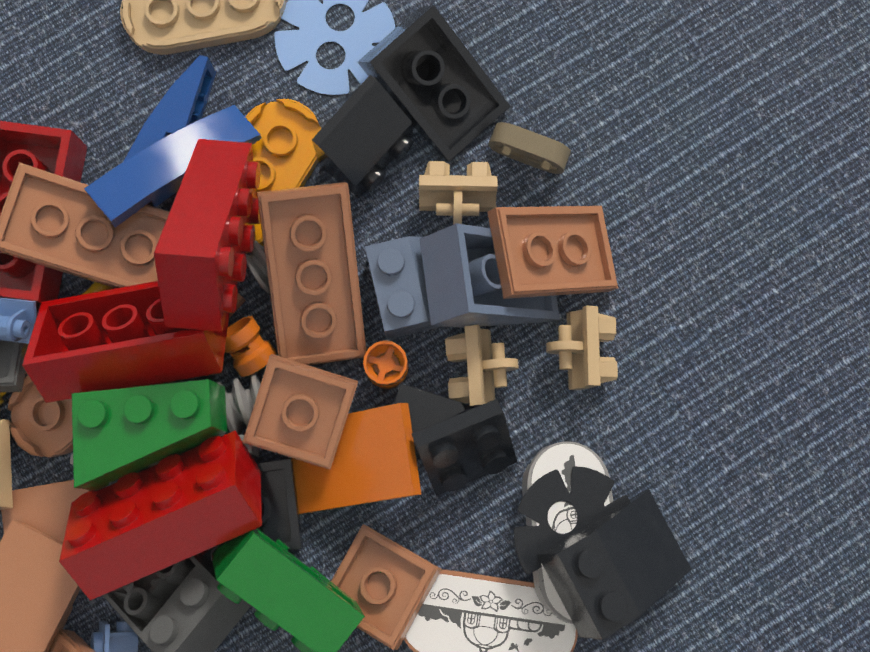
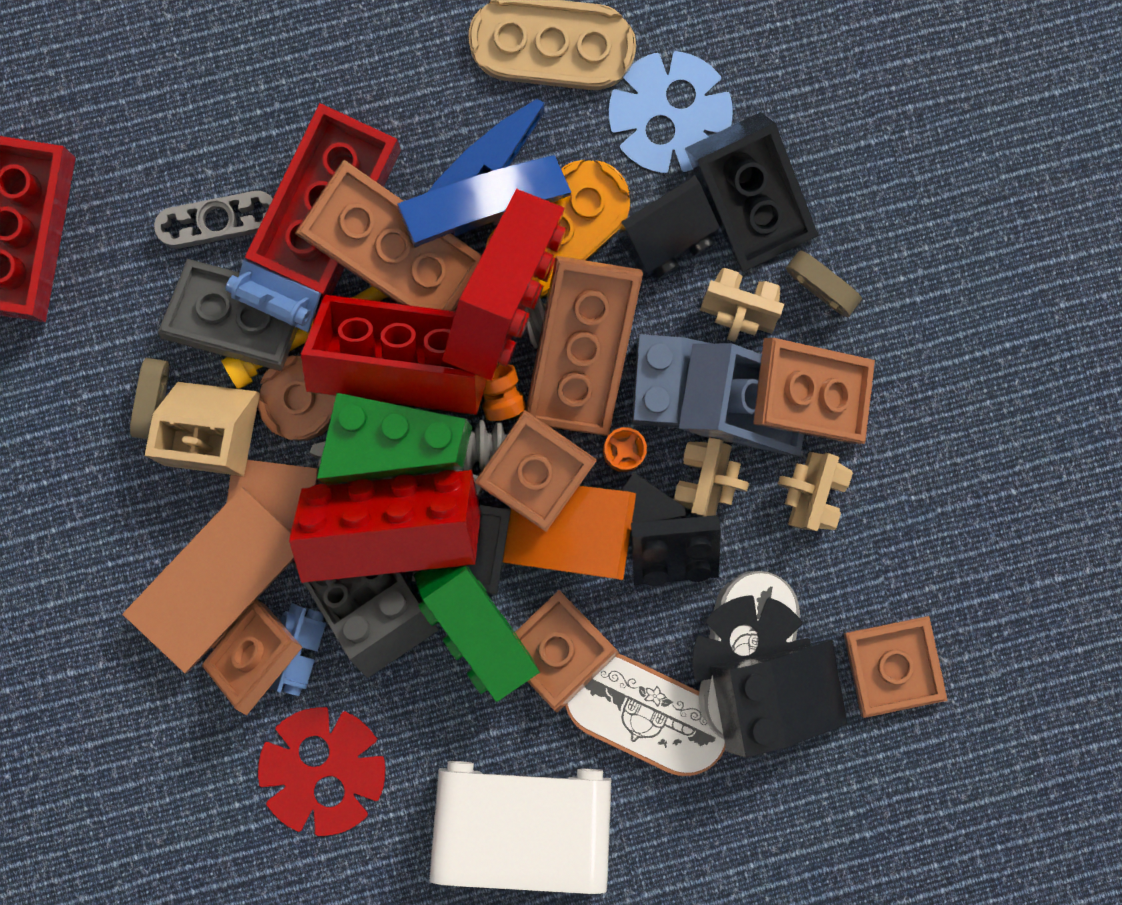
camera: 10 degrees right, 5 degrees up
(719, 497) = (895, 666): none -> nougat tile

